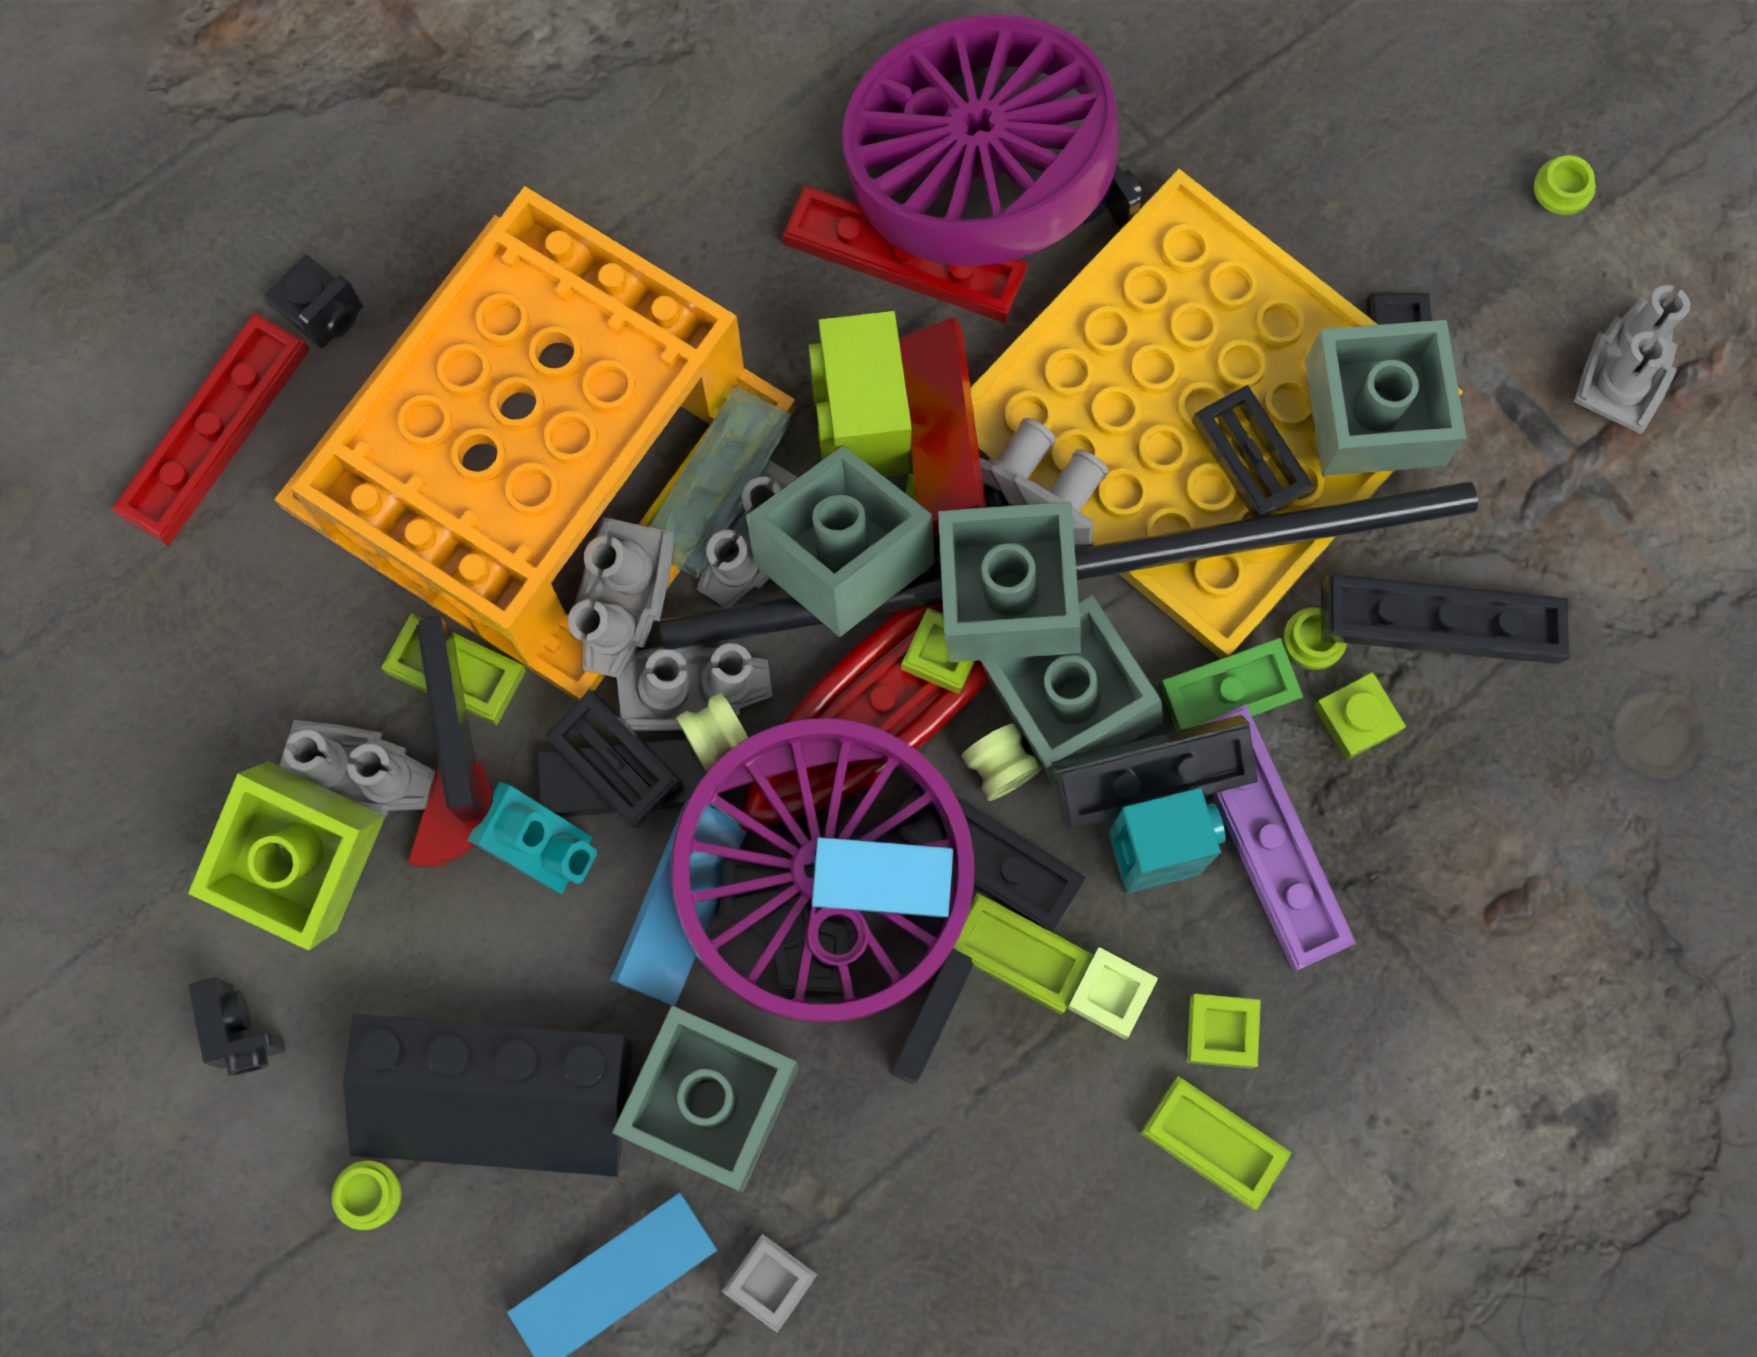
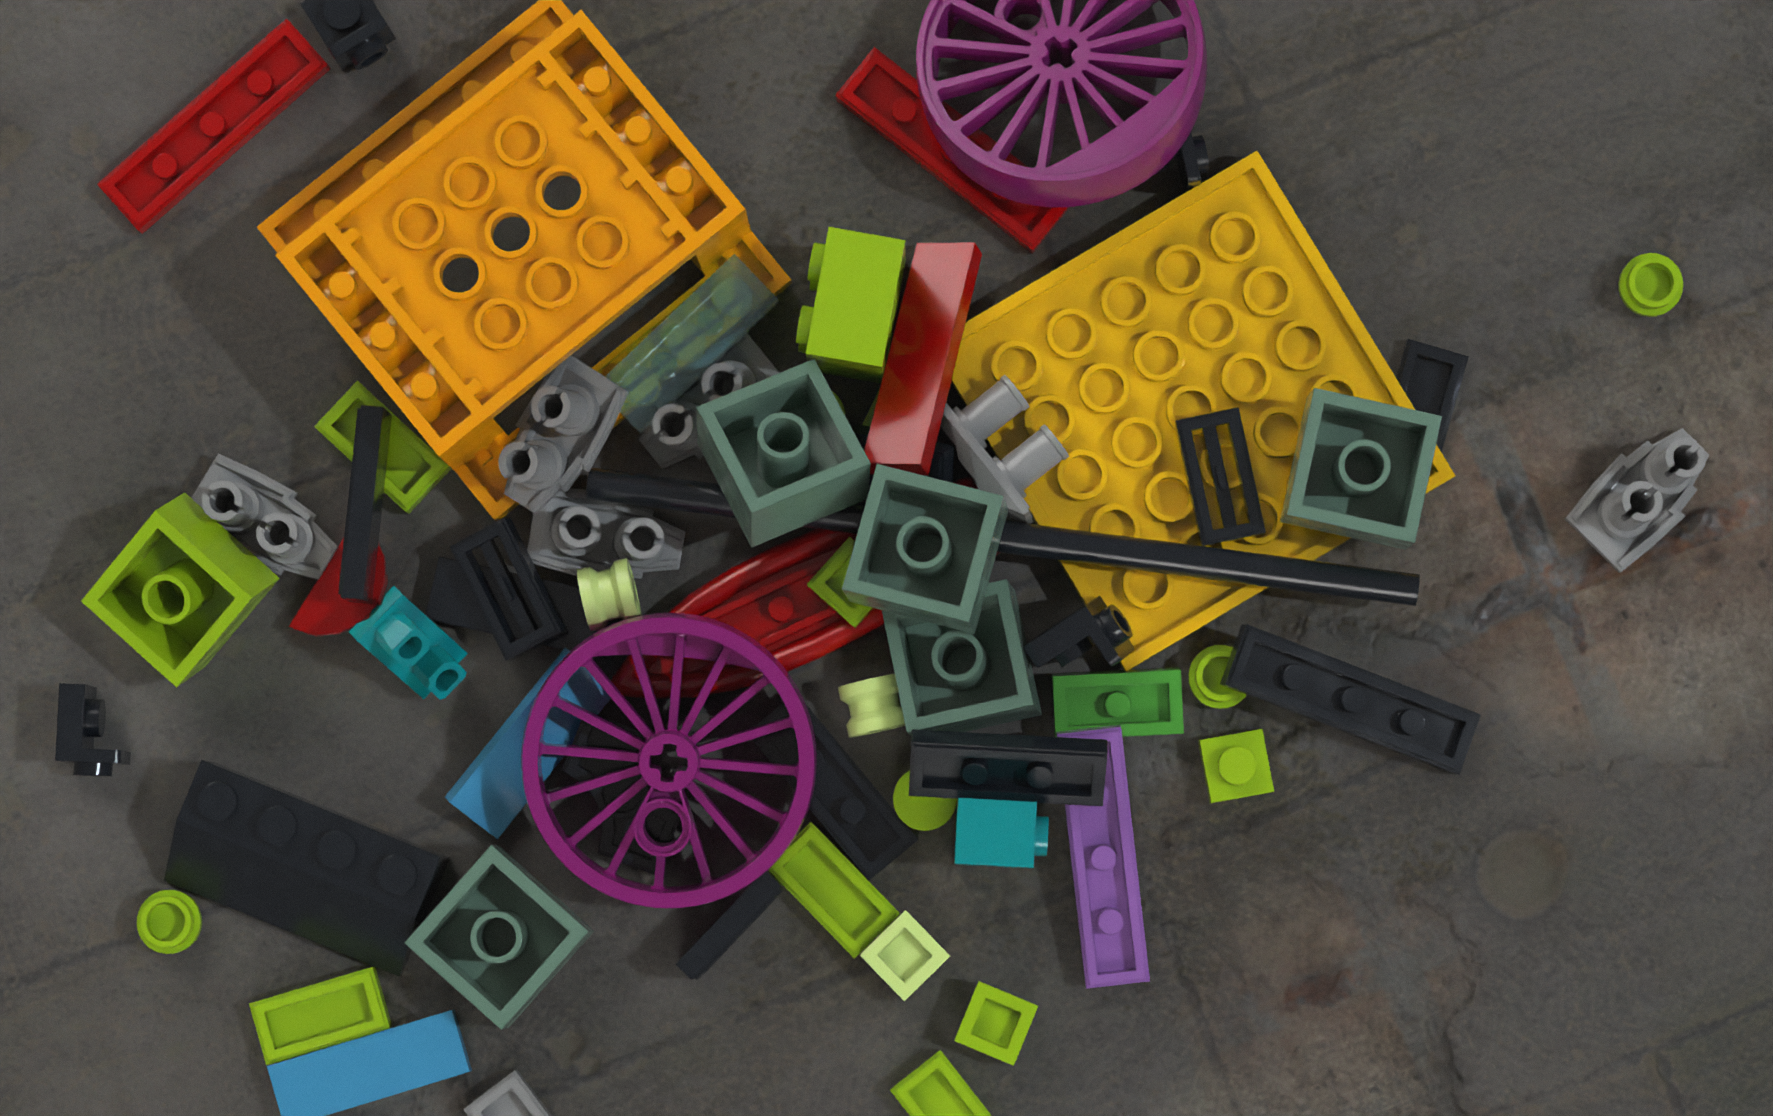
camera: 25 degrees right, 10 degrees up
(547, 1242) = (320, 1015): none -> lime tile
(882, 877) = (718, 789): medium azure tile -> none
(1079, 847) = (921, 812): none -> lime tile
(1168, 639) = (1070, 636): none -> black bracket

